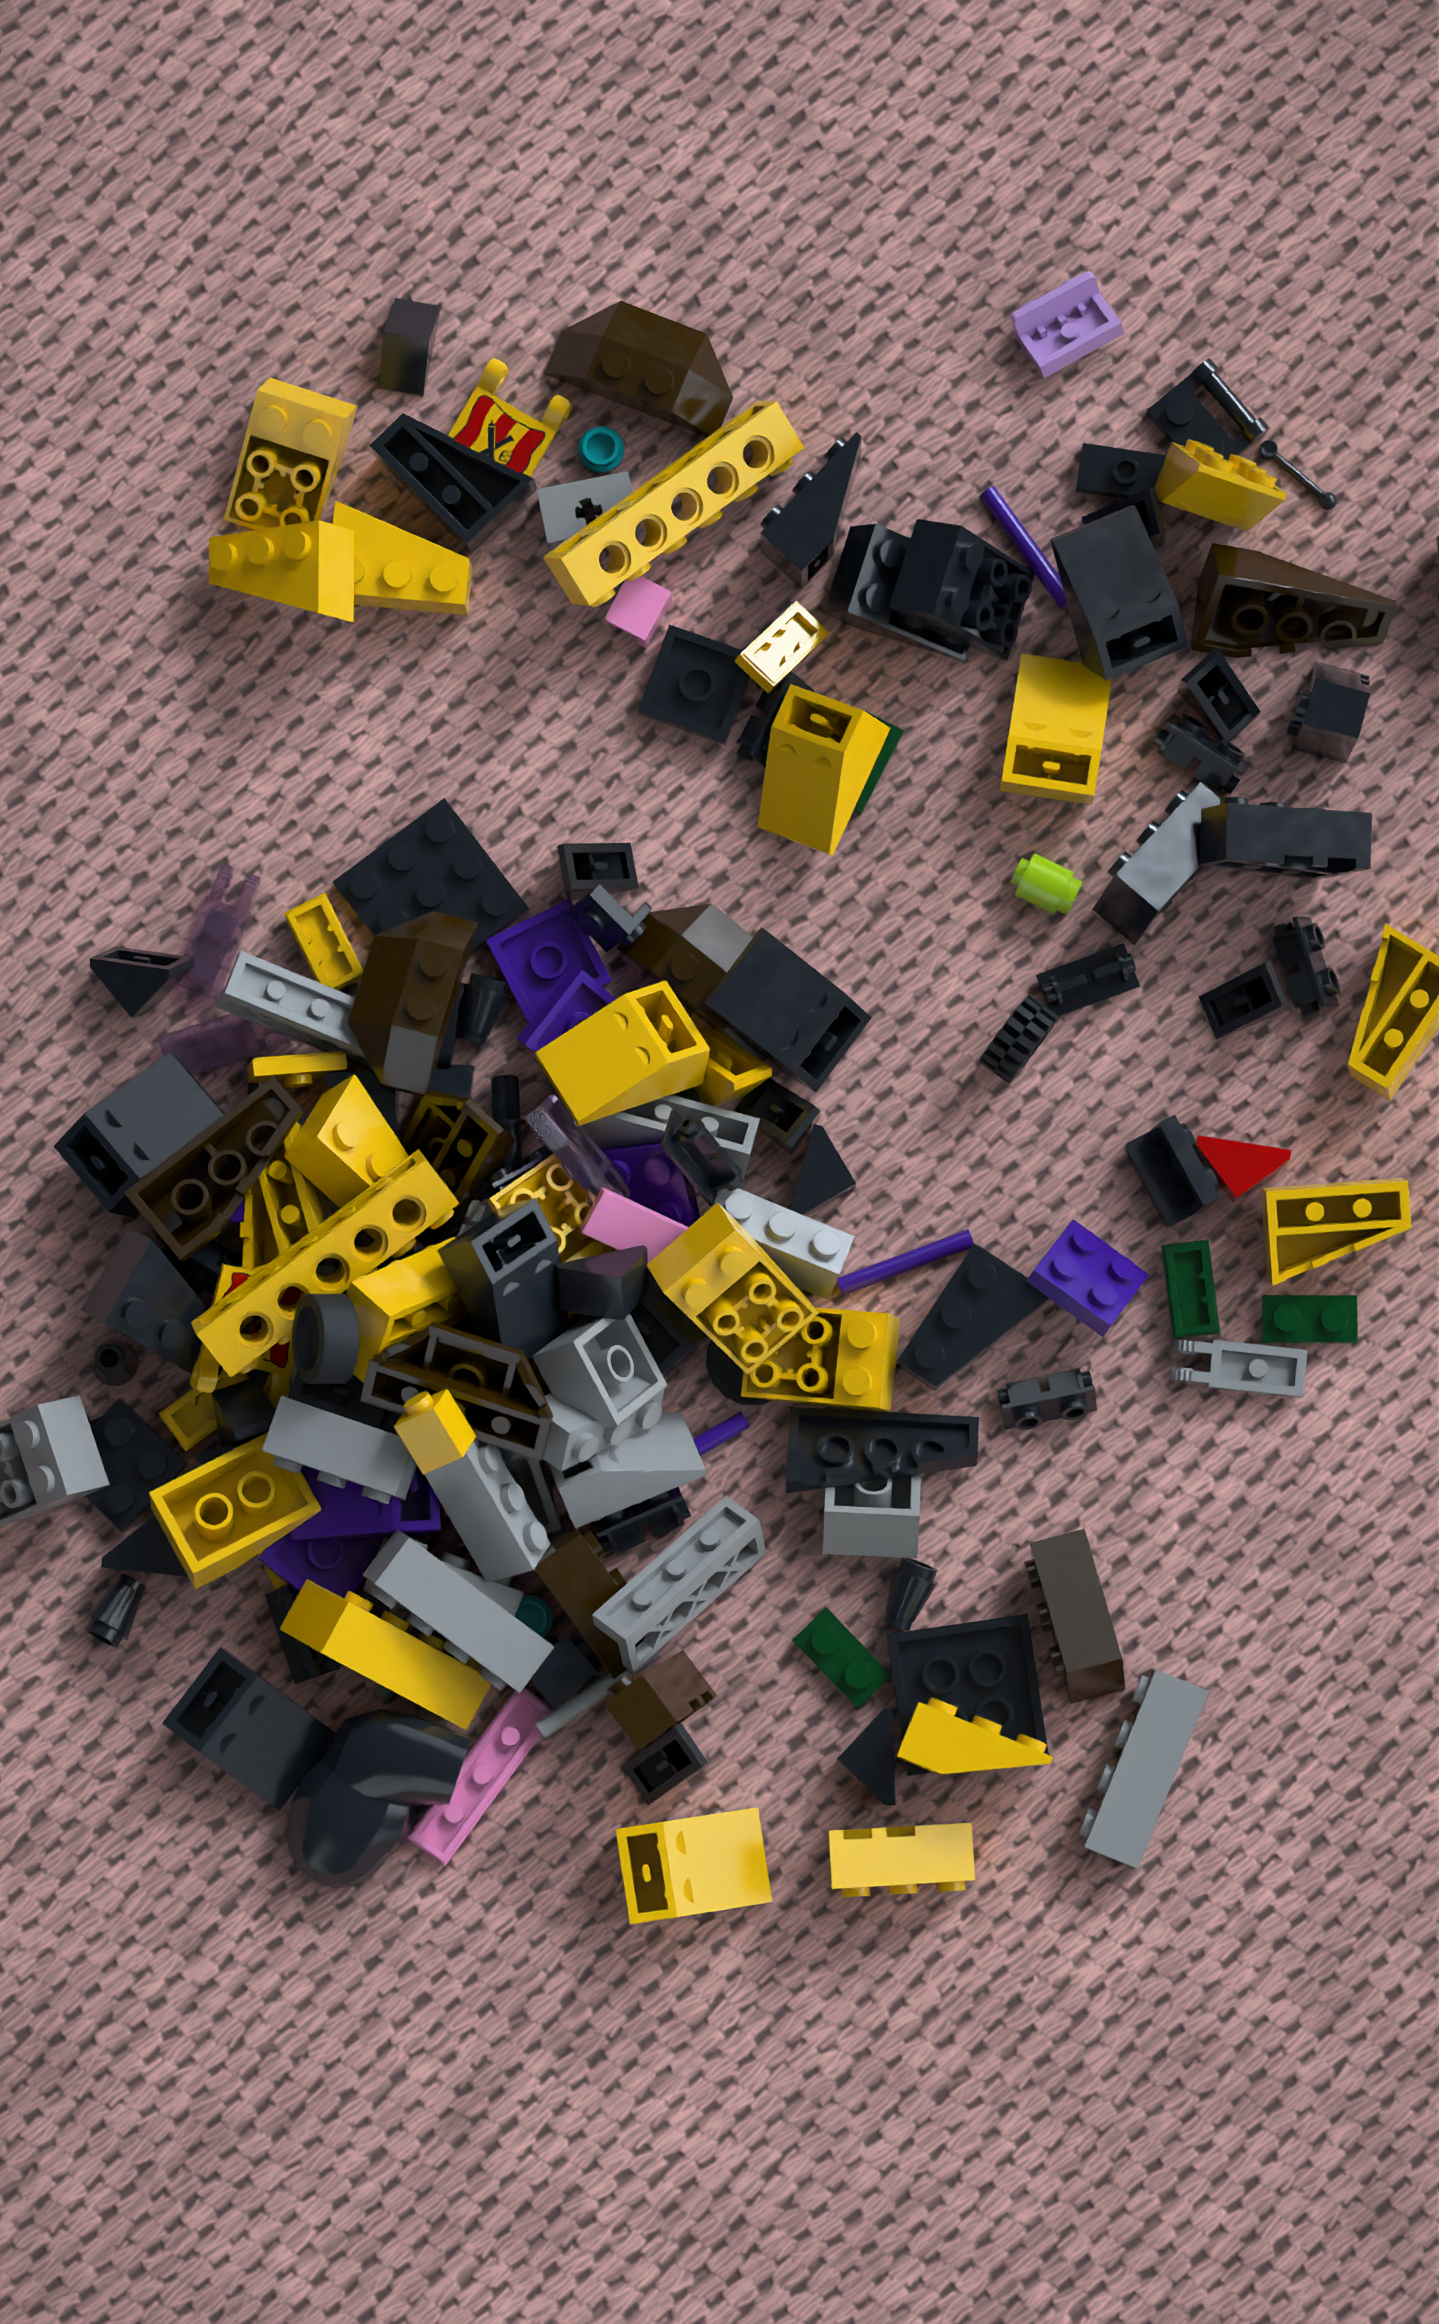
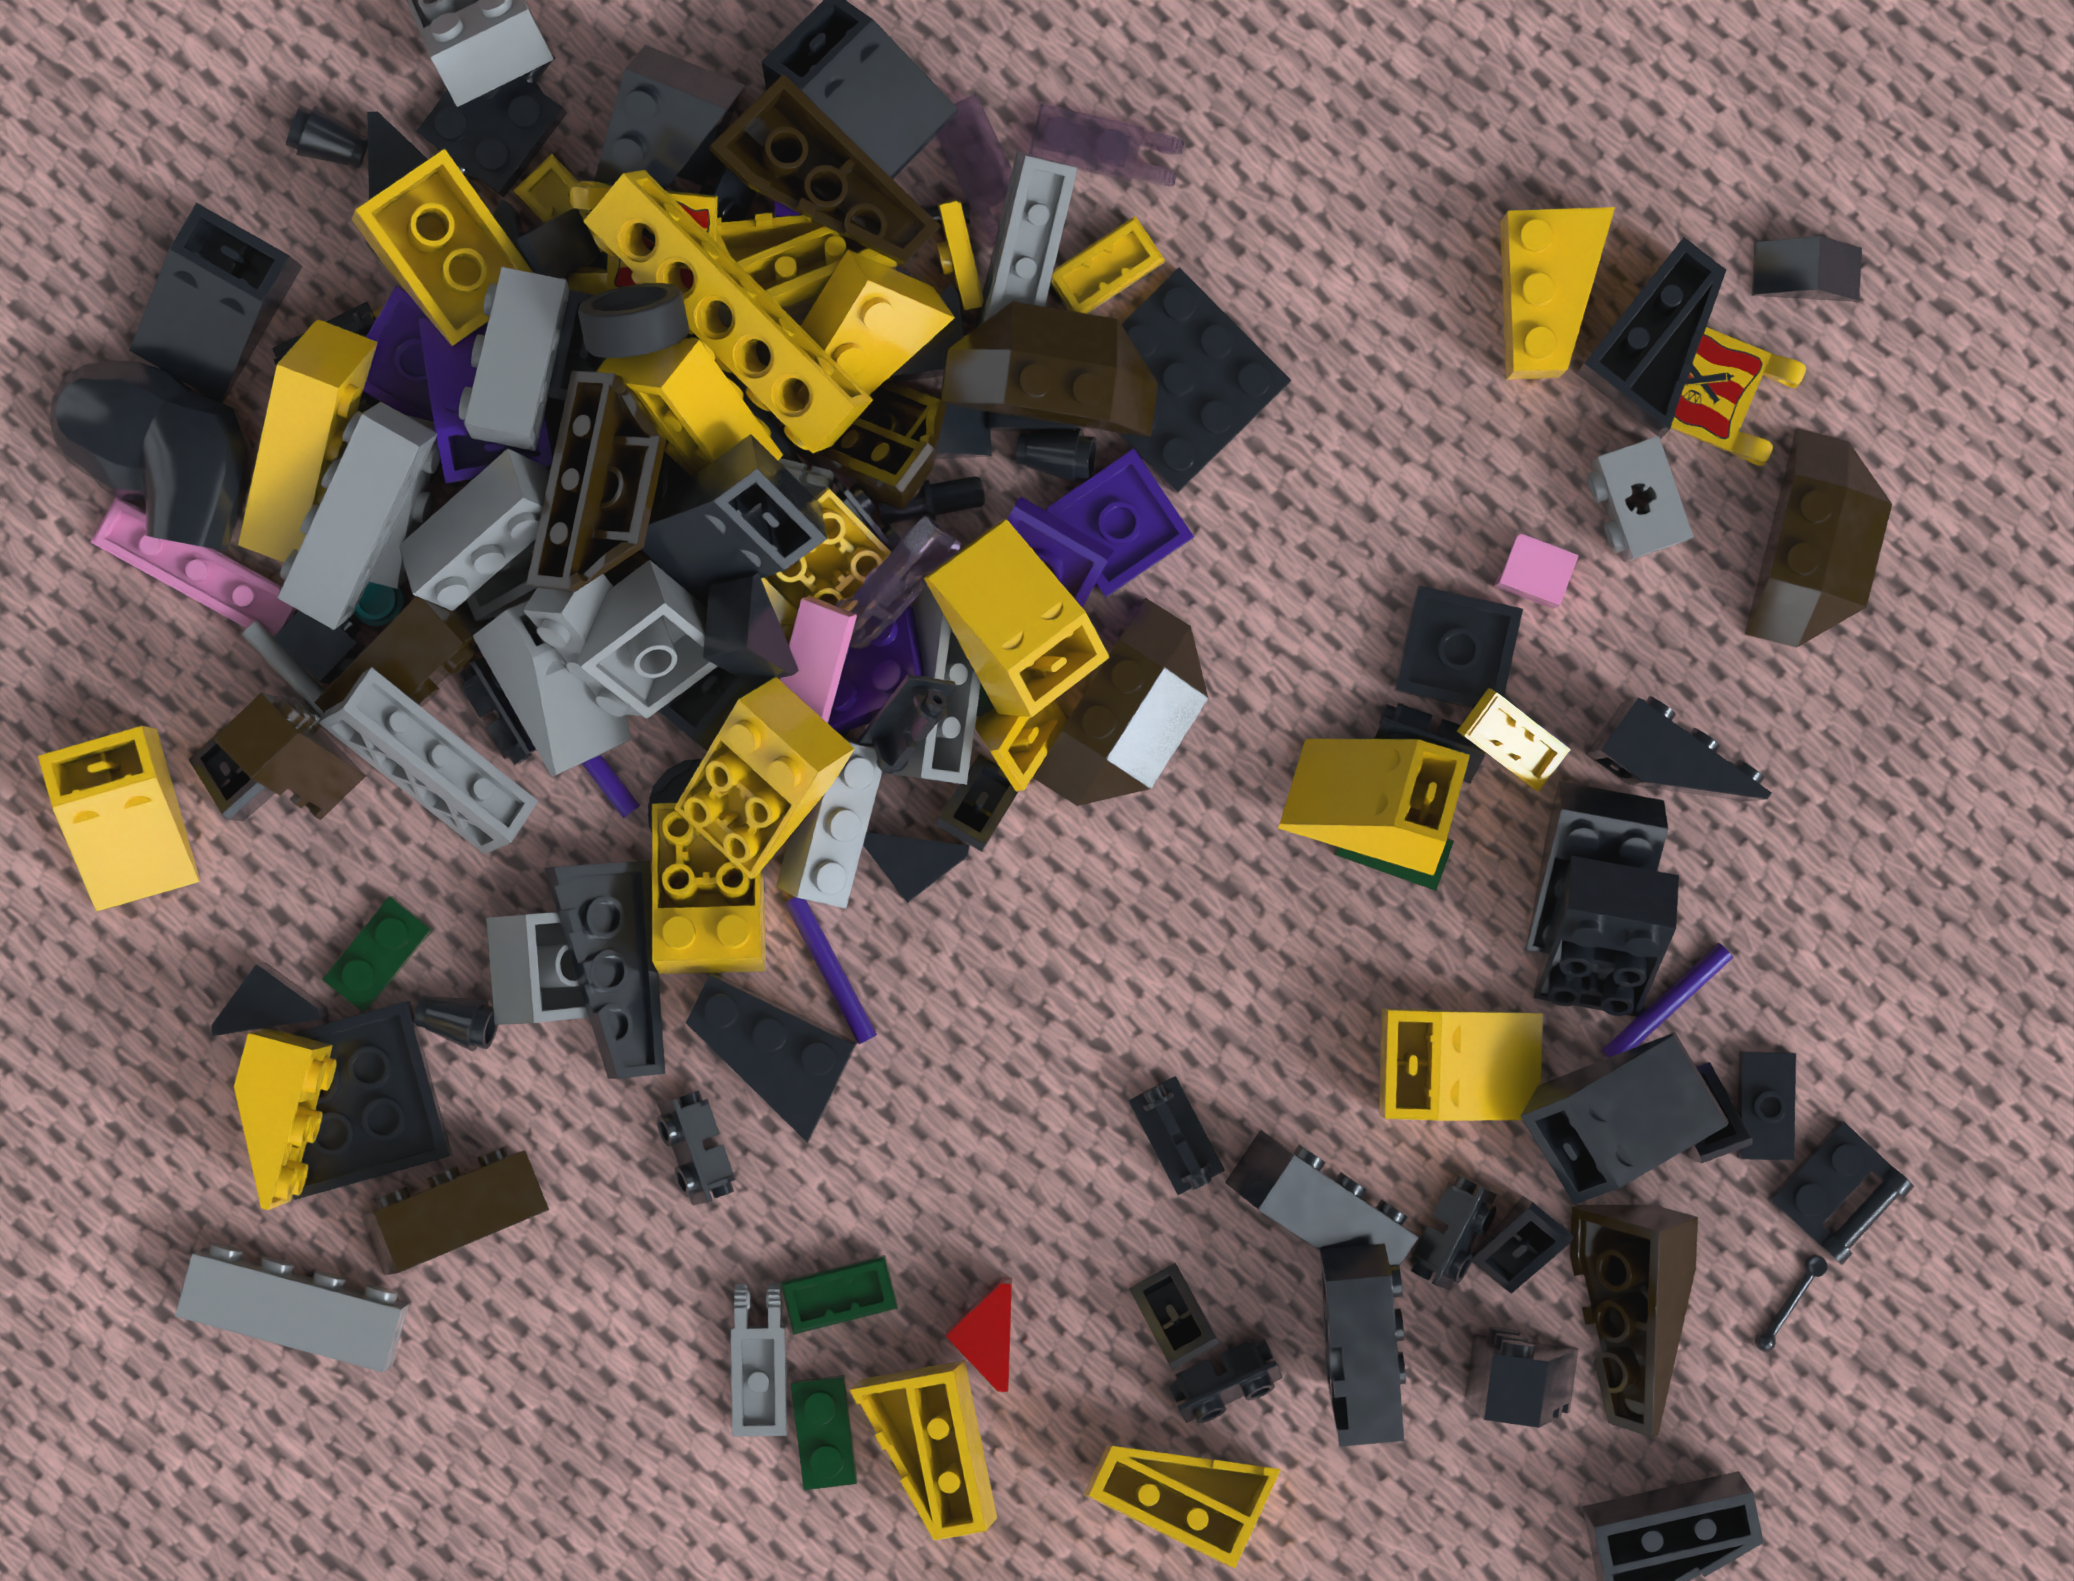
camera: 75 degrees right, 5 degrees up
(125, 1367) = (599, 108): black cone -> none
(139, 976) = (1042, 62): black slope -> none
(288, 456) = (1657, 151): yellow slope -> none
(290, 564) = (1530, 165): yellow wedge -> none
(434, 1430) = (541, 458): yellow brick -> none
(577, 559) = (1581, 490): yellow brick -> none
(595, 864) = (1231, 563): black slope -> none
(601, 449) = (1716, 505): teal plate -> none
(607, 920) = (1171, 581): black bracket -> none
(788, 1010) = (1092, 800): black slope -> none
(901, 1858) = (158, 1047): yellow wedge -> none
(1019, 1038) = (1096, 1066): black tyre -> none
(1046, 884) = (1279, 1075): lime brick -> none
(1065, 324) = (1931, 1016): lavender bracket -> none
(1087, 1277) = (834, 1177): dark purple plate -> none
(1172, 1171) = (969, 1258): black bracket -> none
(1217, 488) = (1761, 1216): yellow slope -> none

